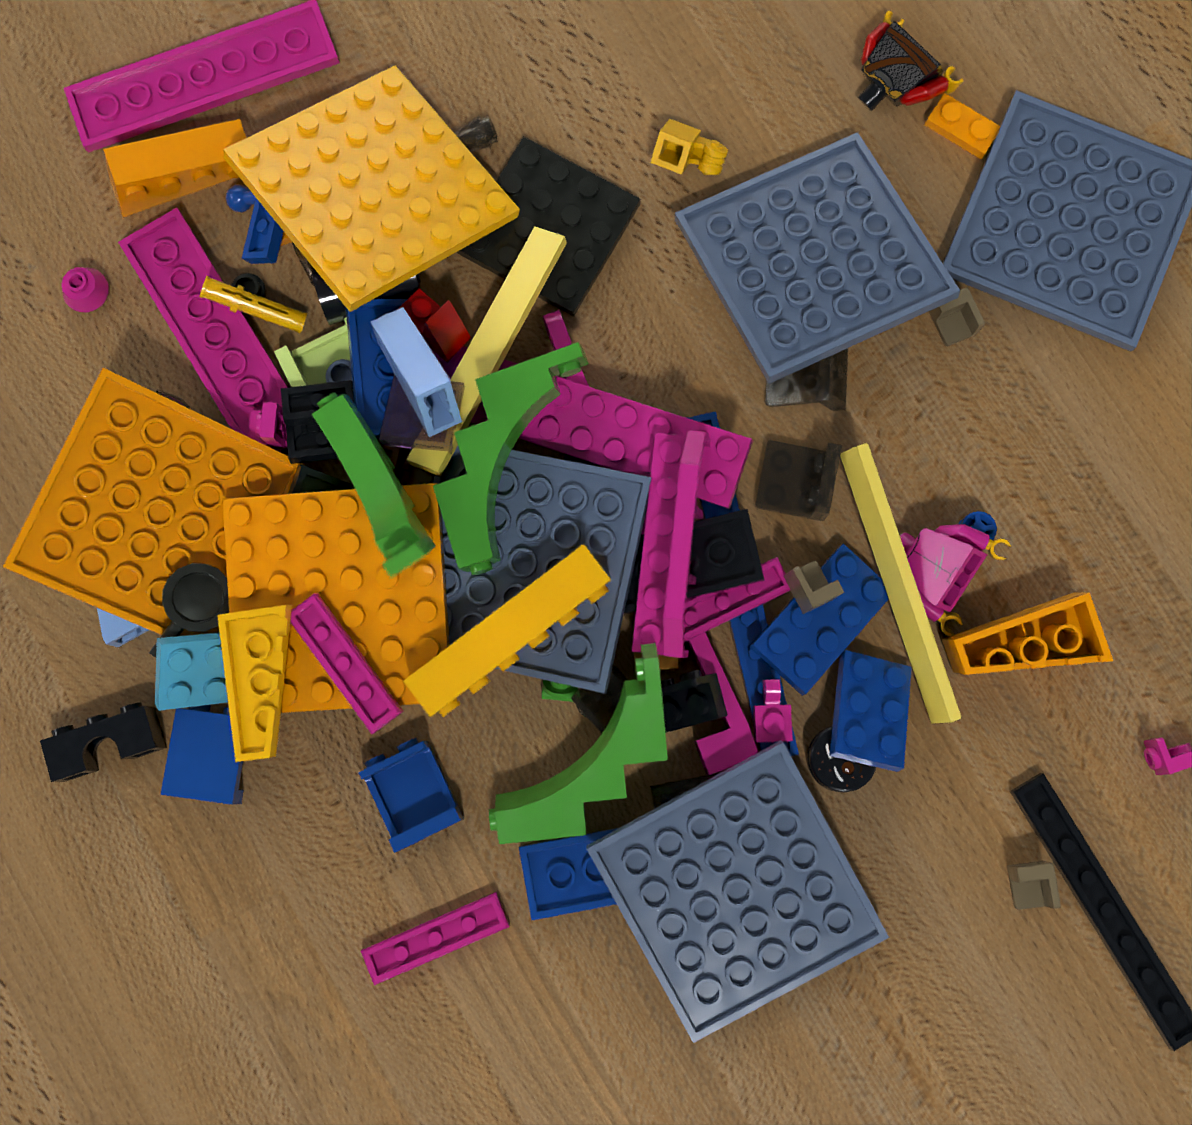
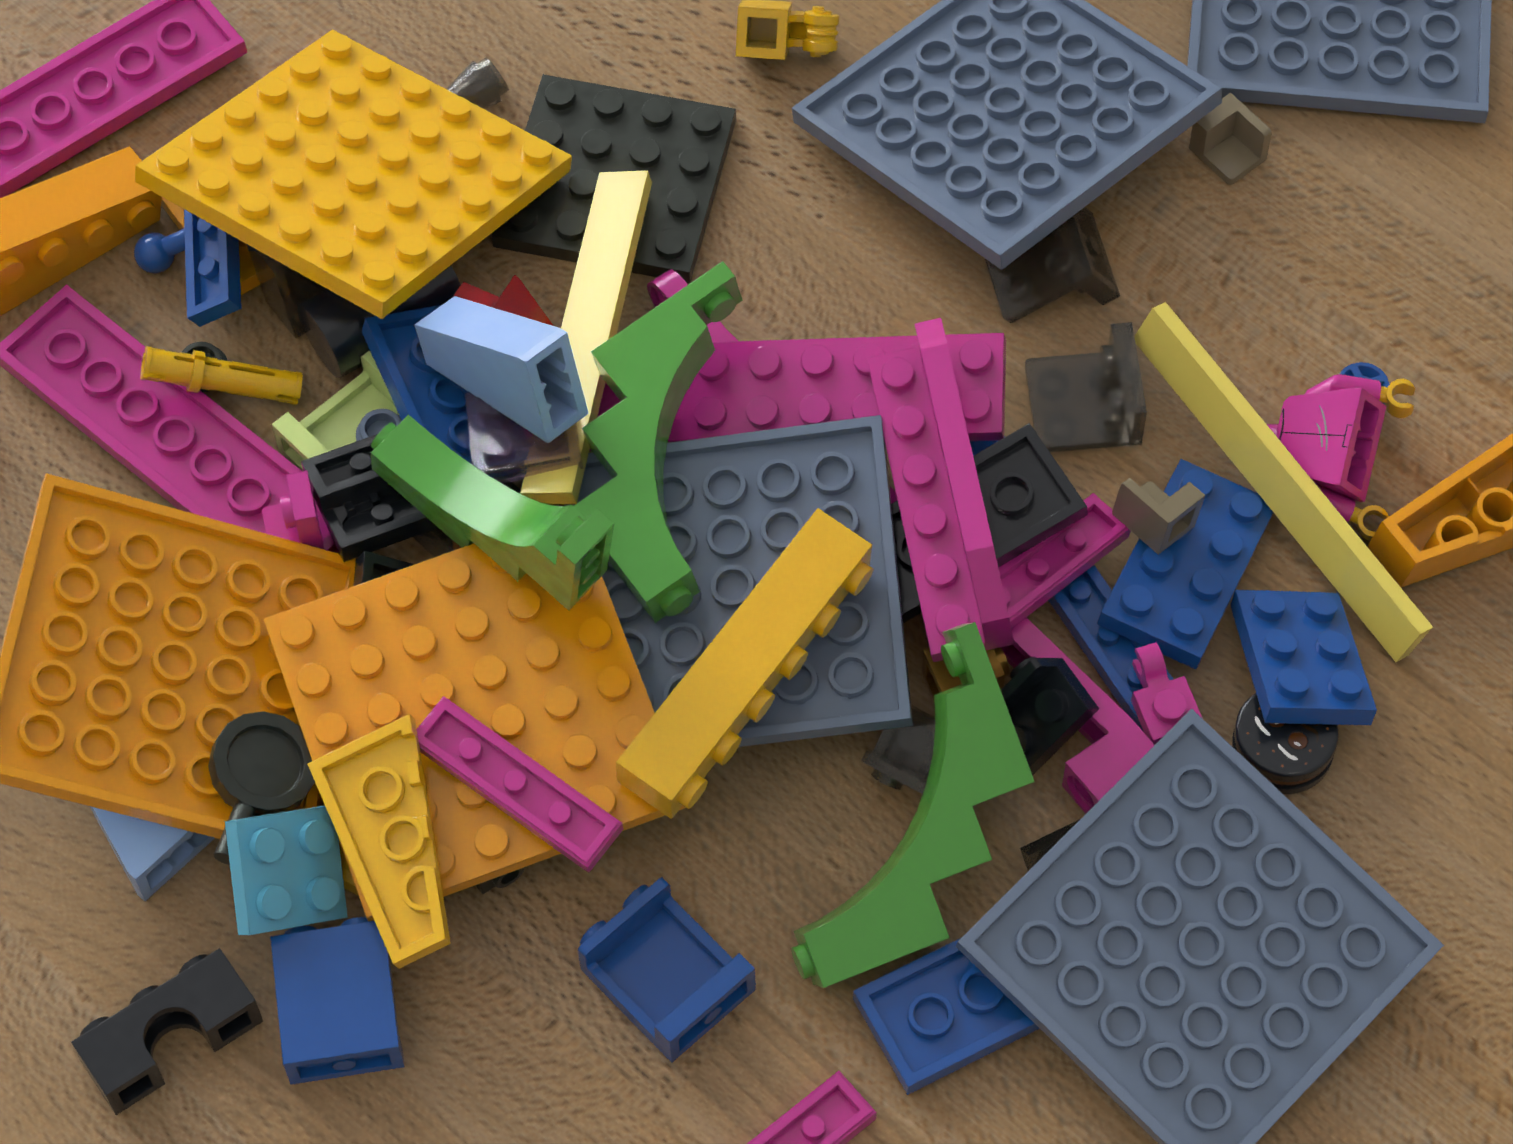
camera: 20 degrees left, 20 degrees down
(557, 691) = (839, 763): bright green plate -> none

